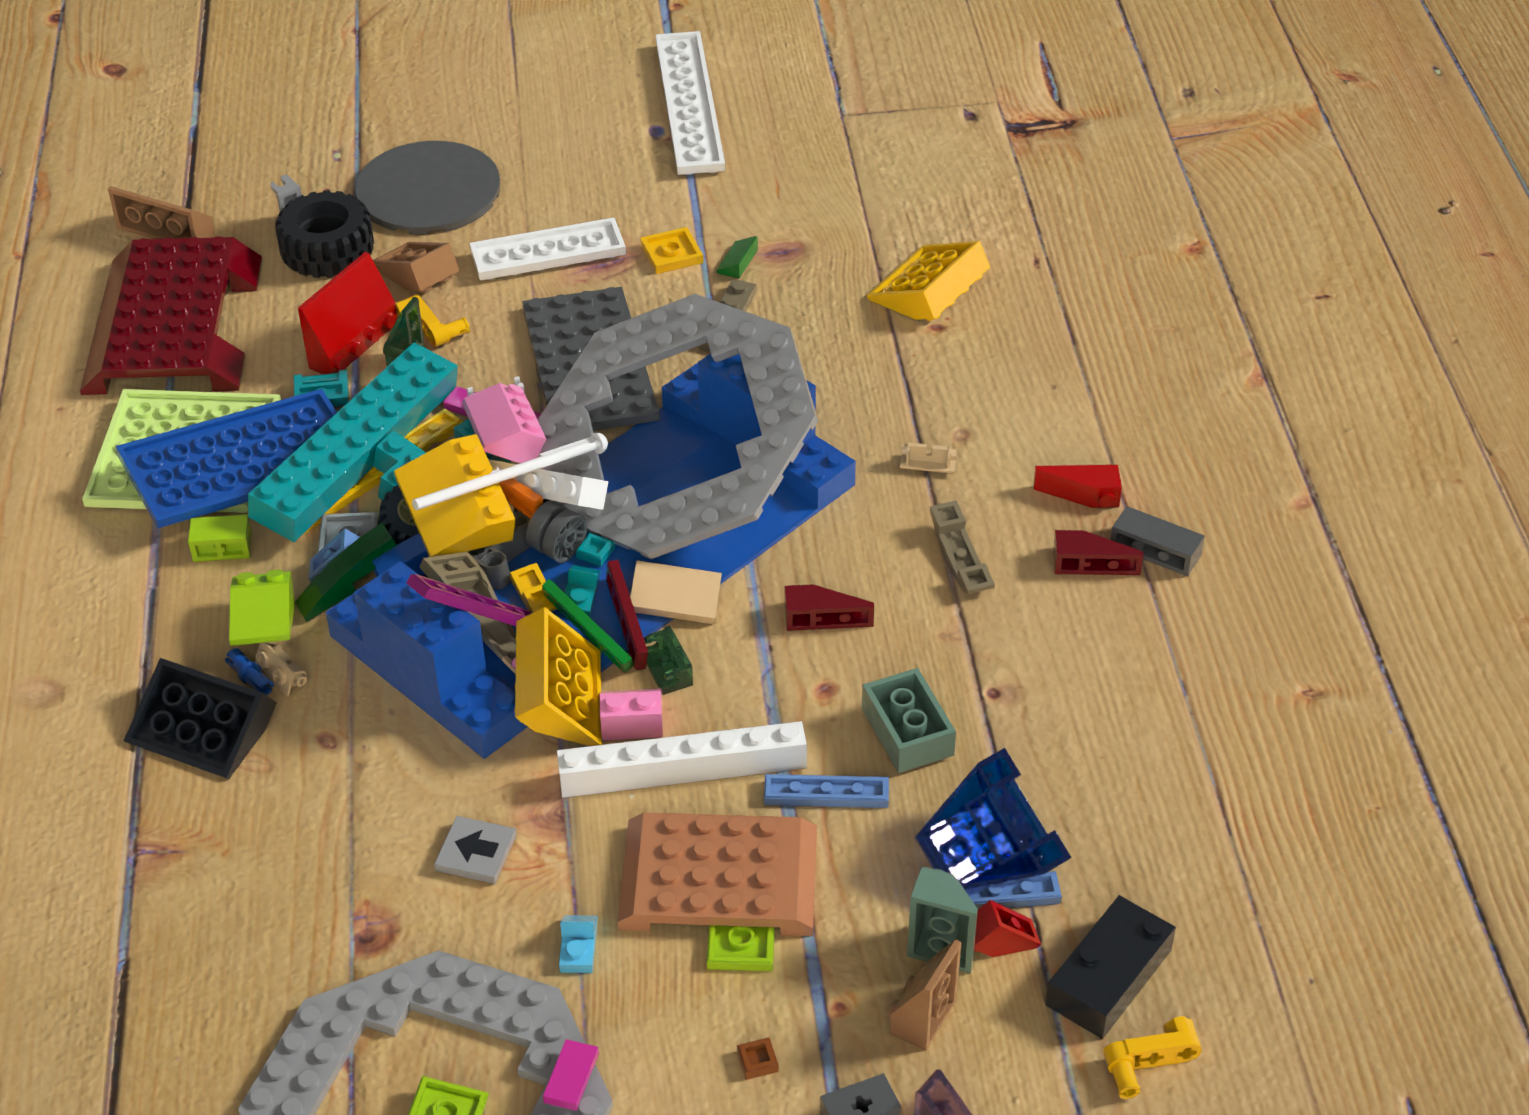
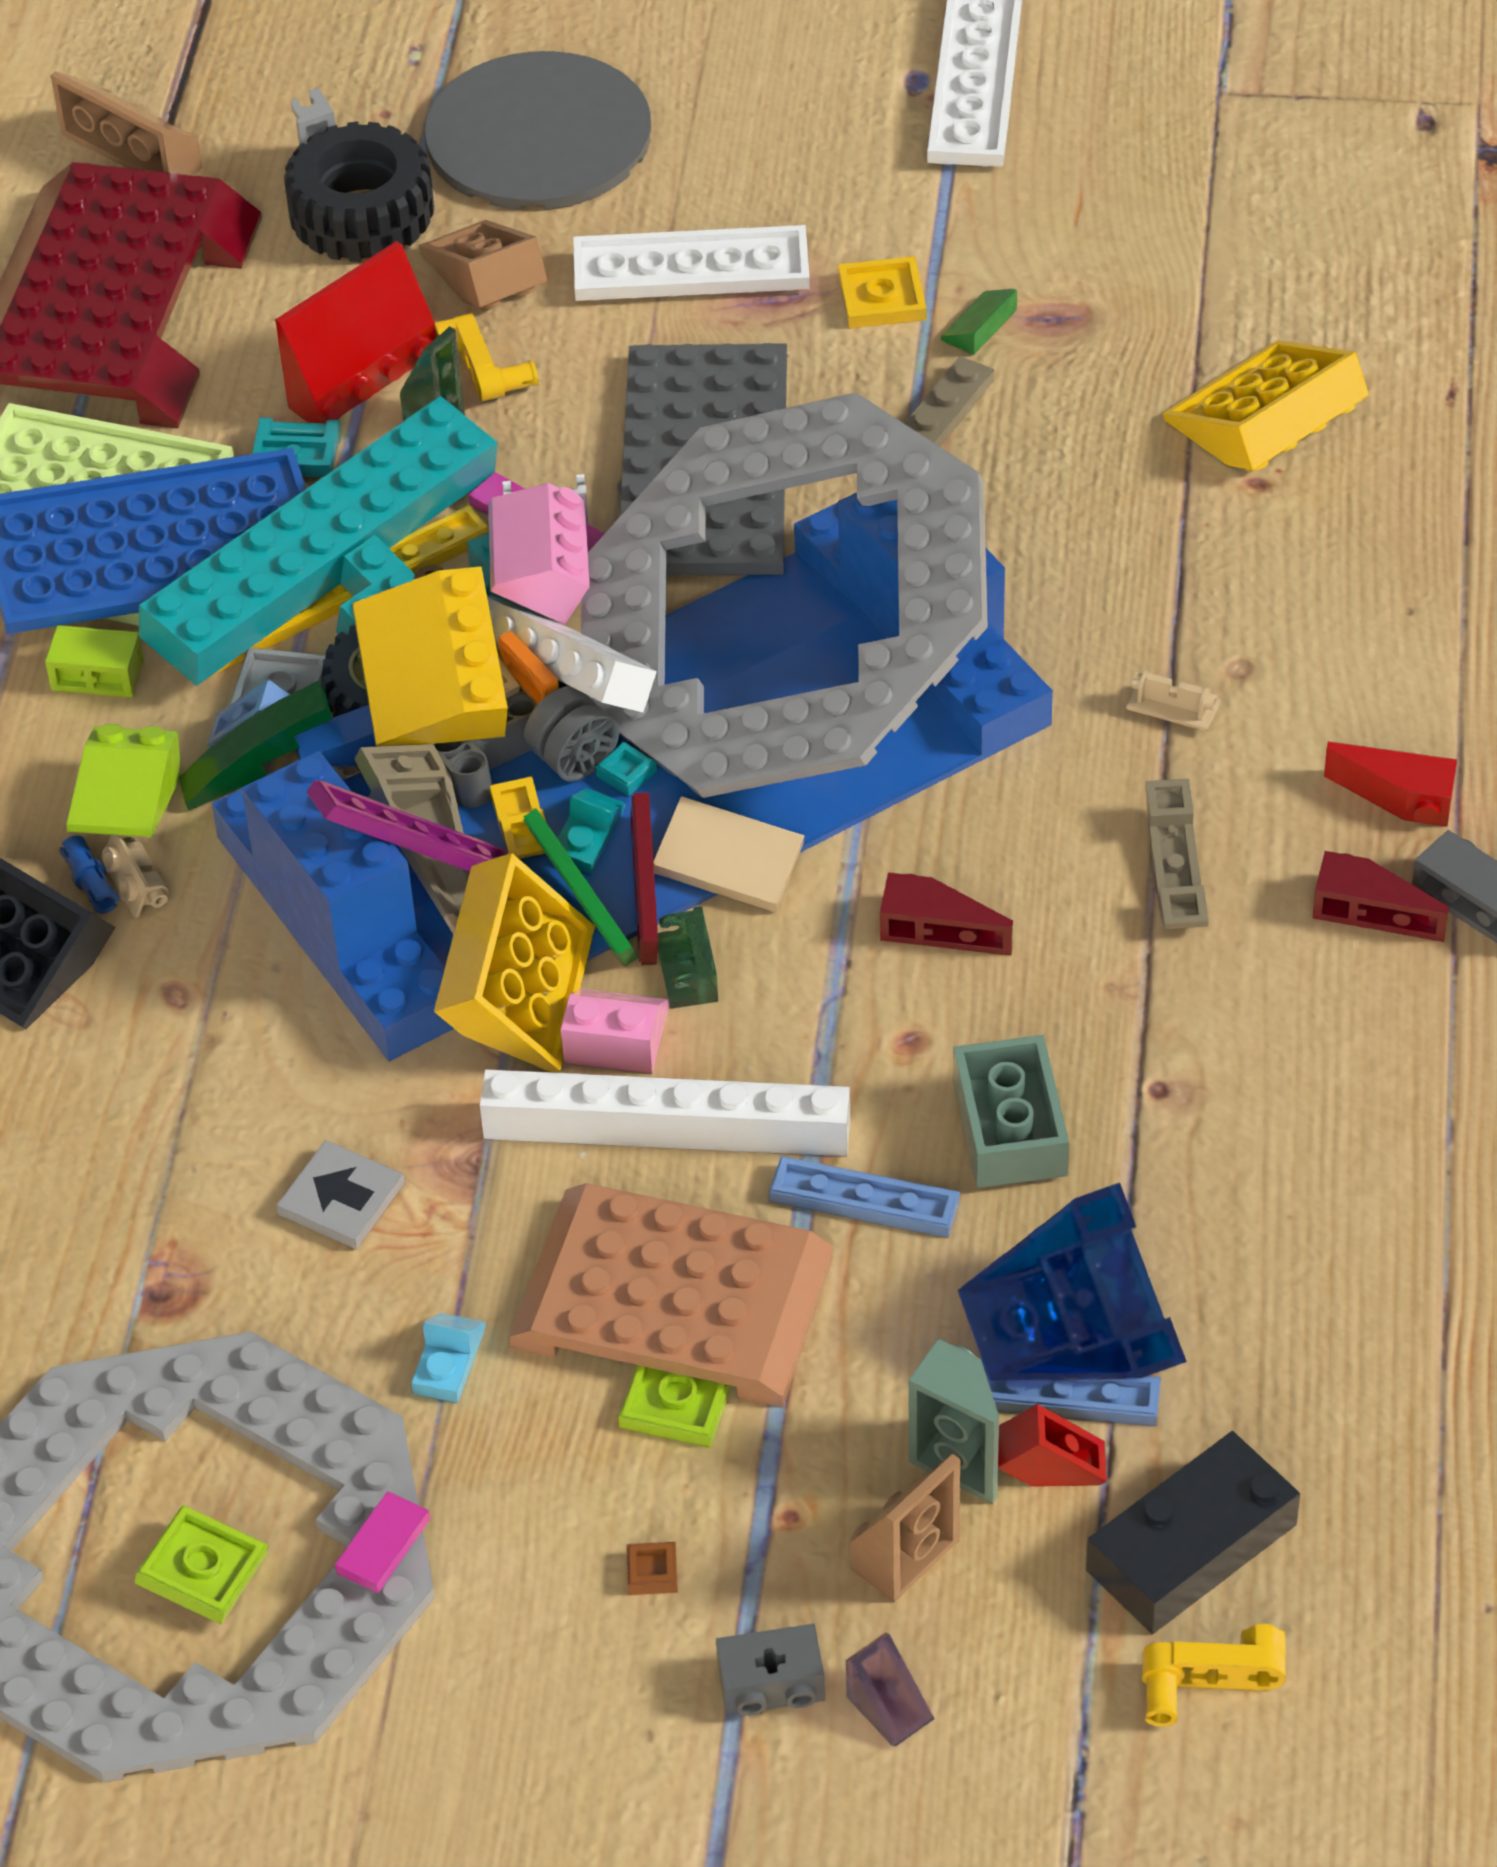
camera: 15 degrees right, 5 degrees up
(596, 443) = (658, 604): white bar -> none

